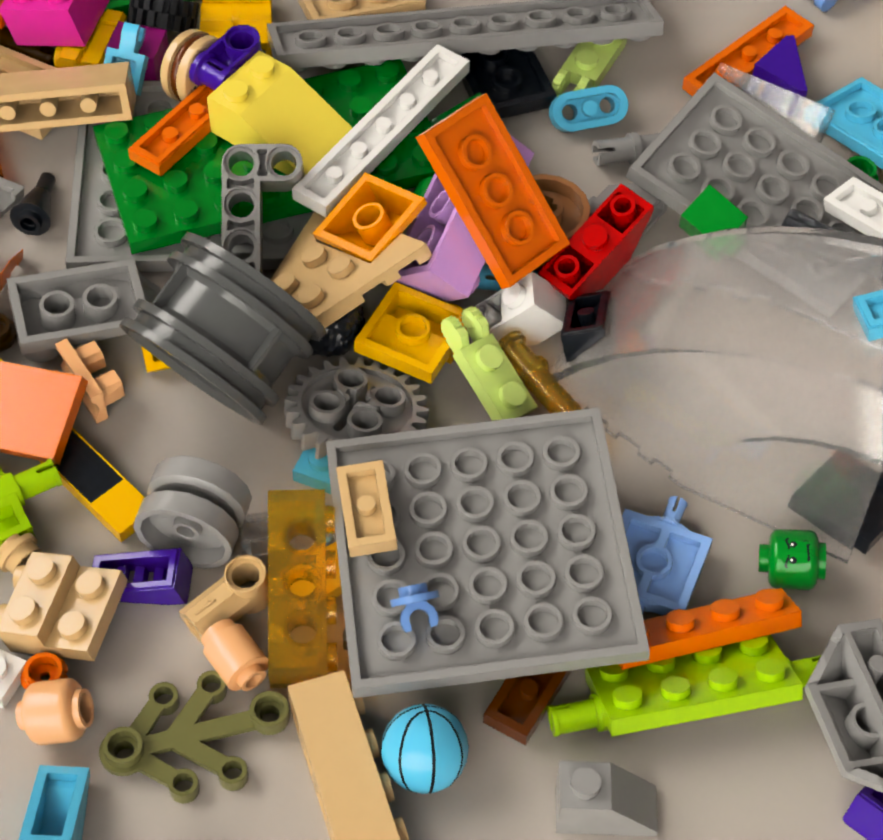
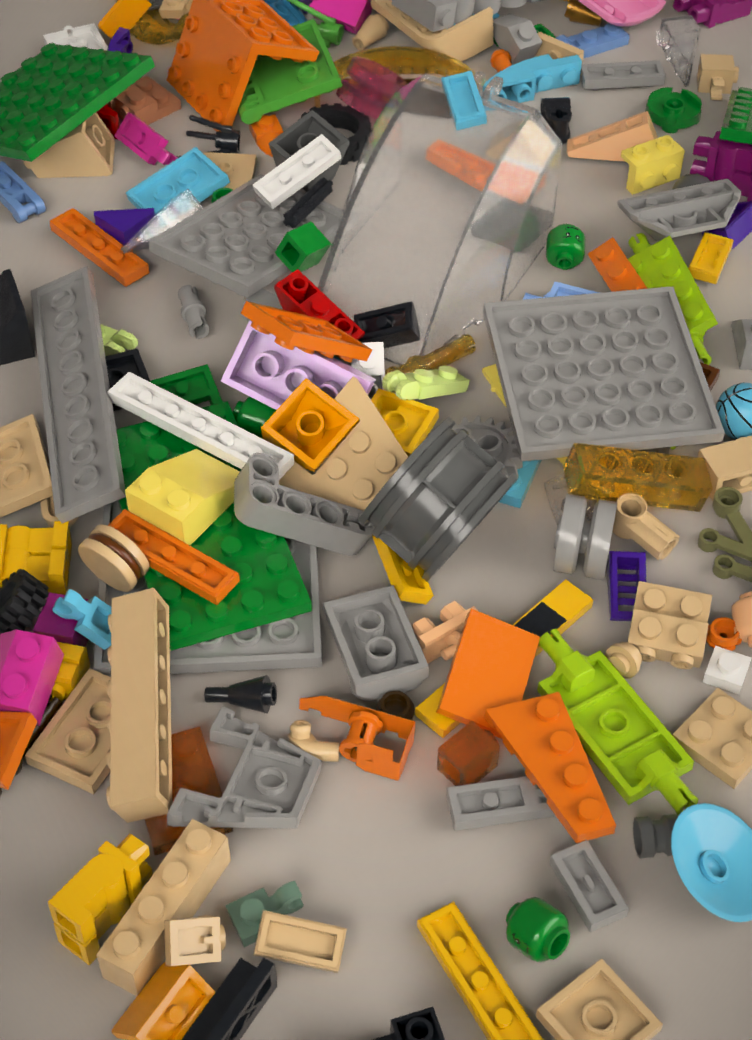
camera: 90 degrees left, 5 degrees down
(225, 56) = (130, 514): dark purple piece -> none
(234, 655) = (690, 518): light nougat brick -> none
(366, 508) = (588, 417): tan plate -> none
(415, 598) = (662, 390): medium blue plate -> none
(587, 109) = (151, 333): medium azure plate -> none
(796, 770) = (710, 257): none -> yellow plate

